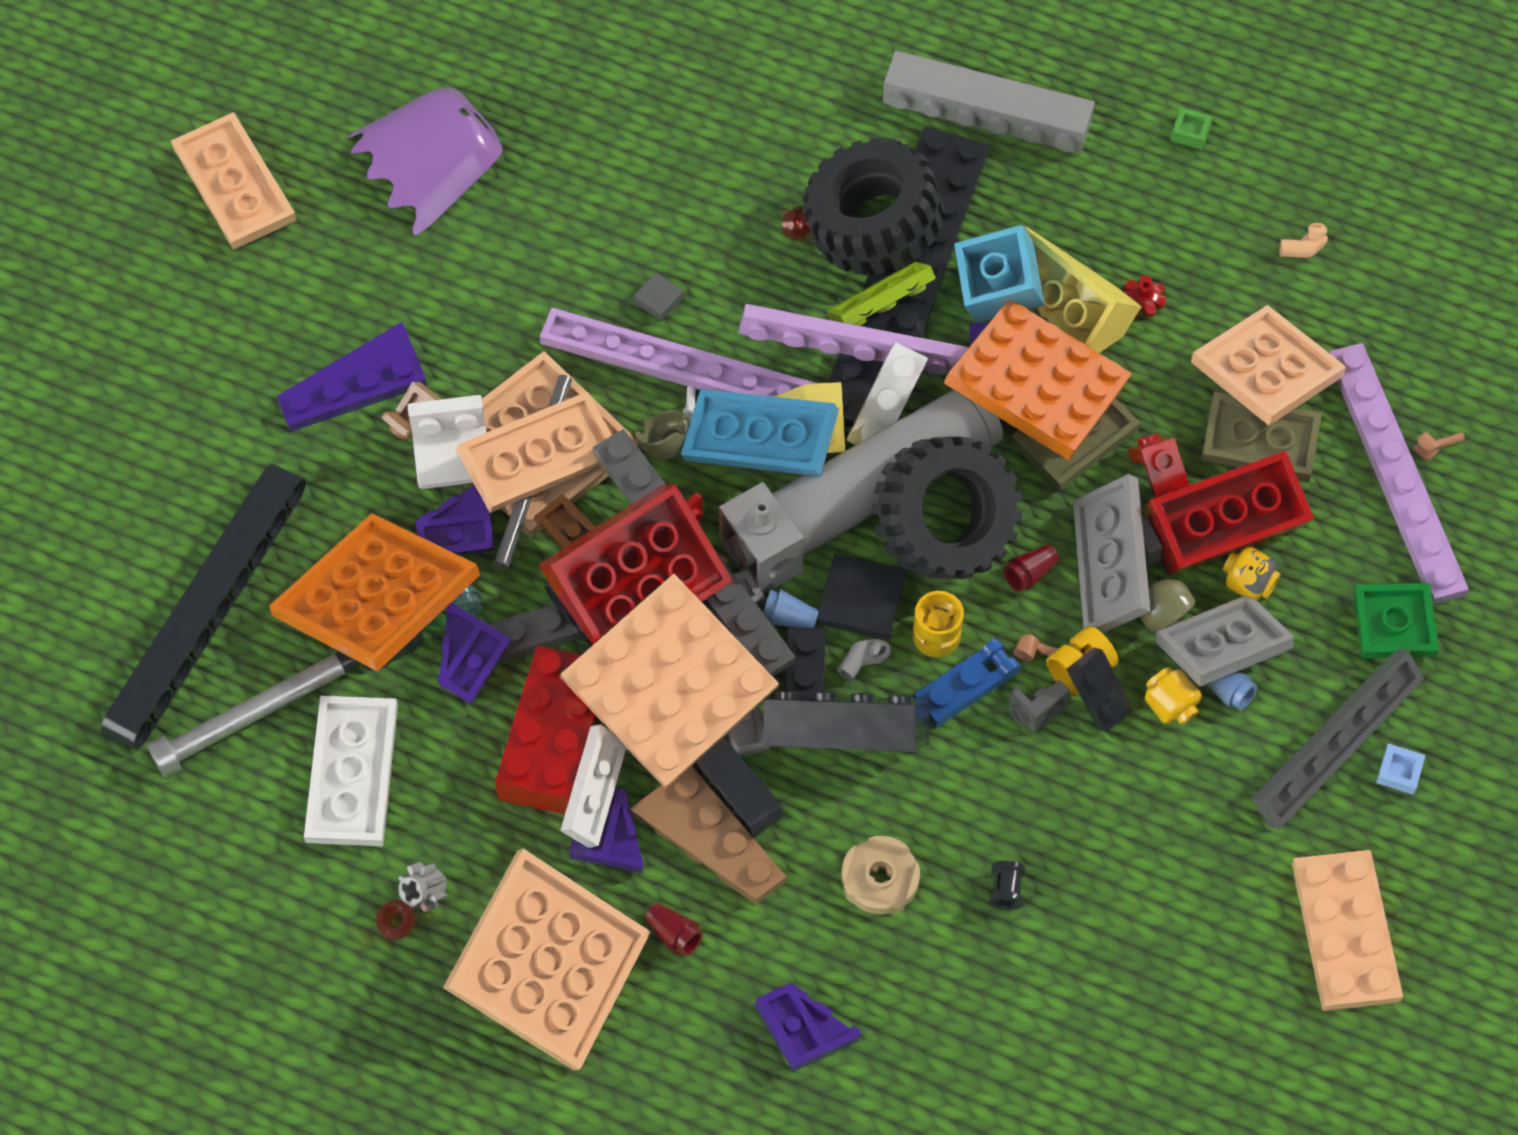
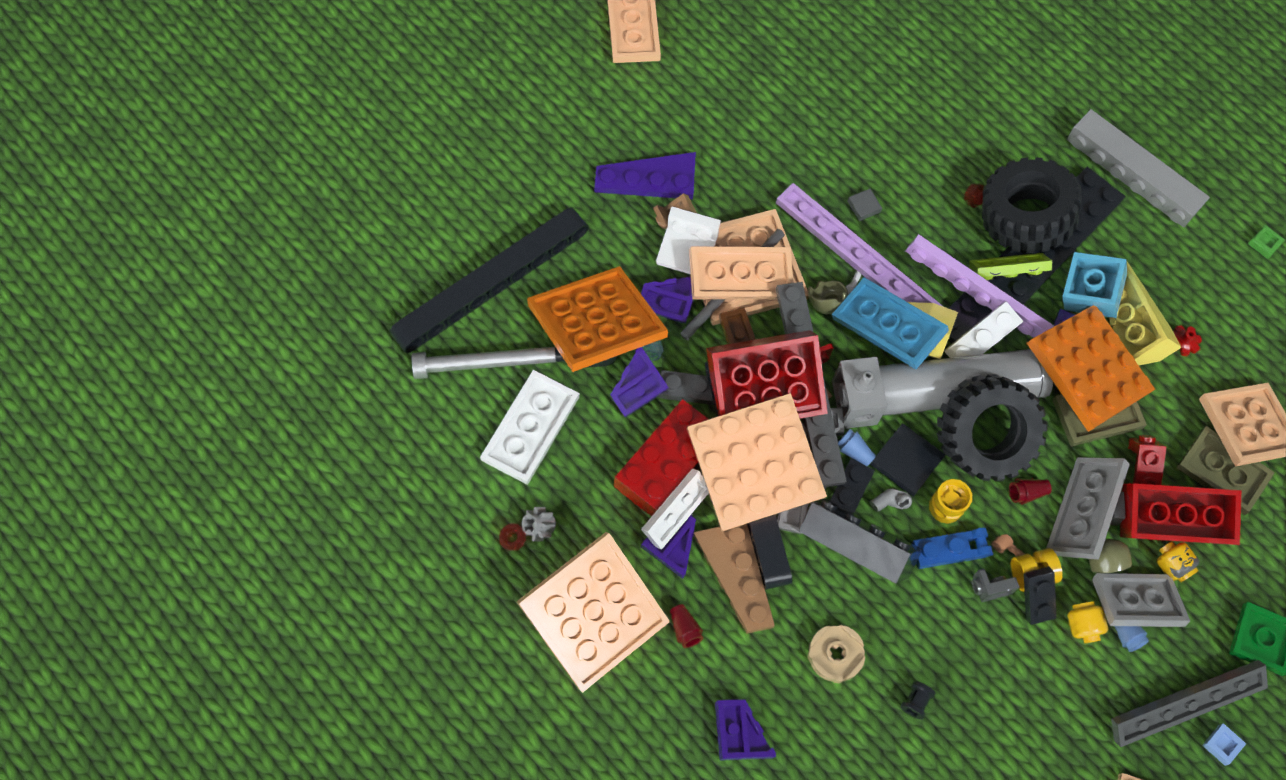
camera: 20 degrees right, 5 degrees up
(429, 152) = (761, 52): medium lavender piece -> none

